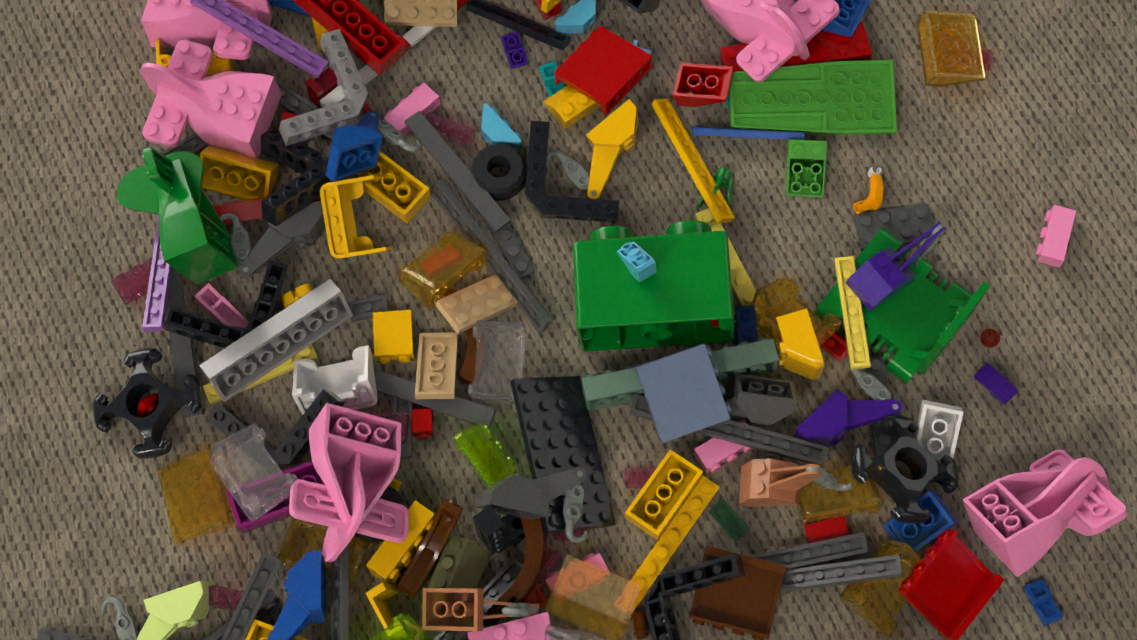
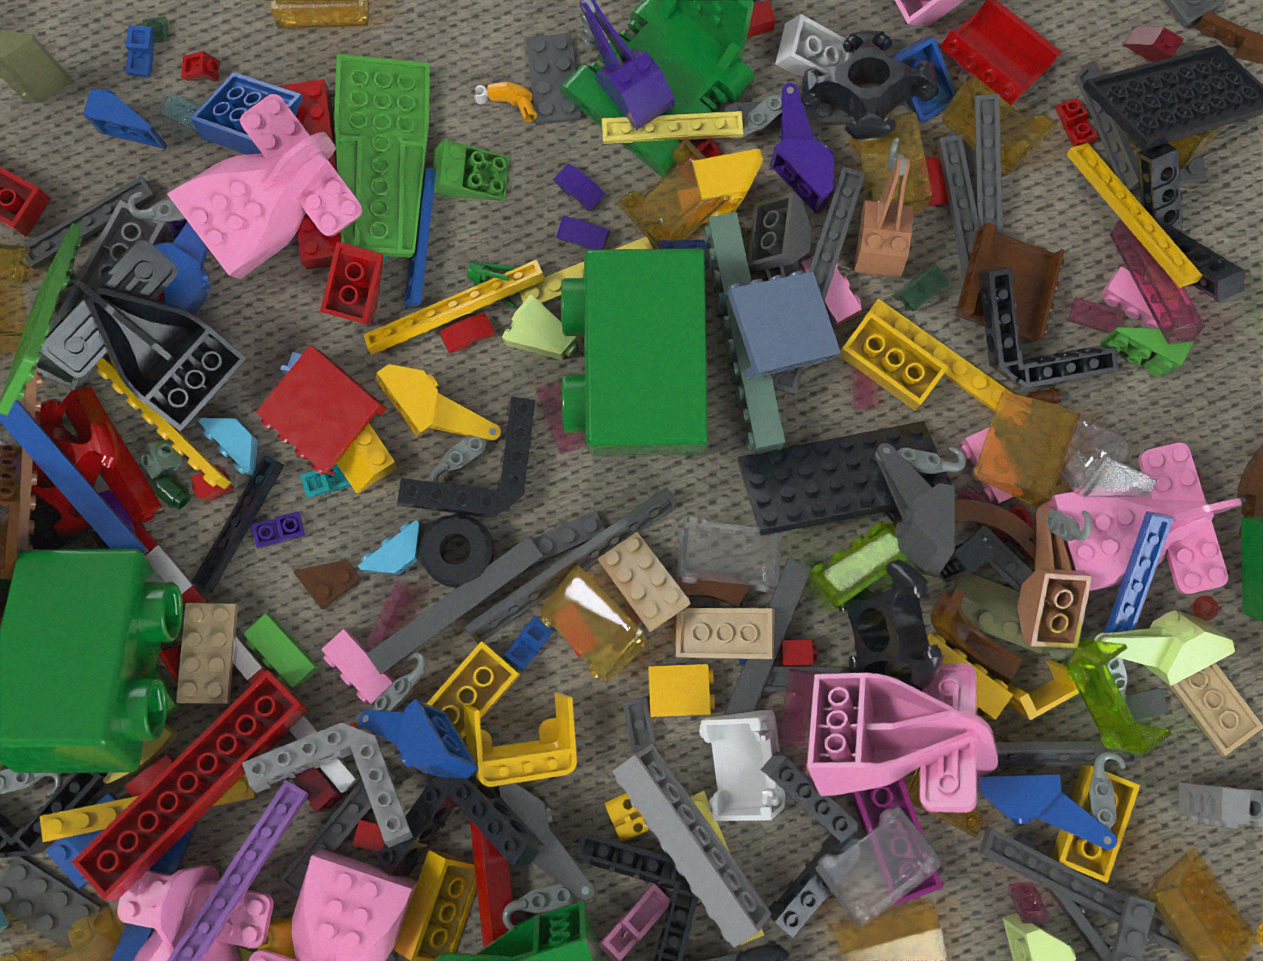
camera: 90 degrees left, 10 degrees up
(423, 58) = (280, 651): none -> bright green brick
(428, 226) = (528, 644): none -> blue slope
(435, 480) = (907, 635): none -> black piece
(476, 87) = (328, 581): none -> reddish brown wing
(637, 261) = (628, 358): medium azure slope -> none
(673, 170) = (462, 334): none -> red slope
(677, 210) = (538, 331): none -> yellowish green slope
(759, 253) = (582, 233): none -> dark purple slope
(800, 248) = (579, 185): none -> dark purple slope
(962, 384) = (761, 19): none -> red brick

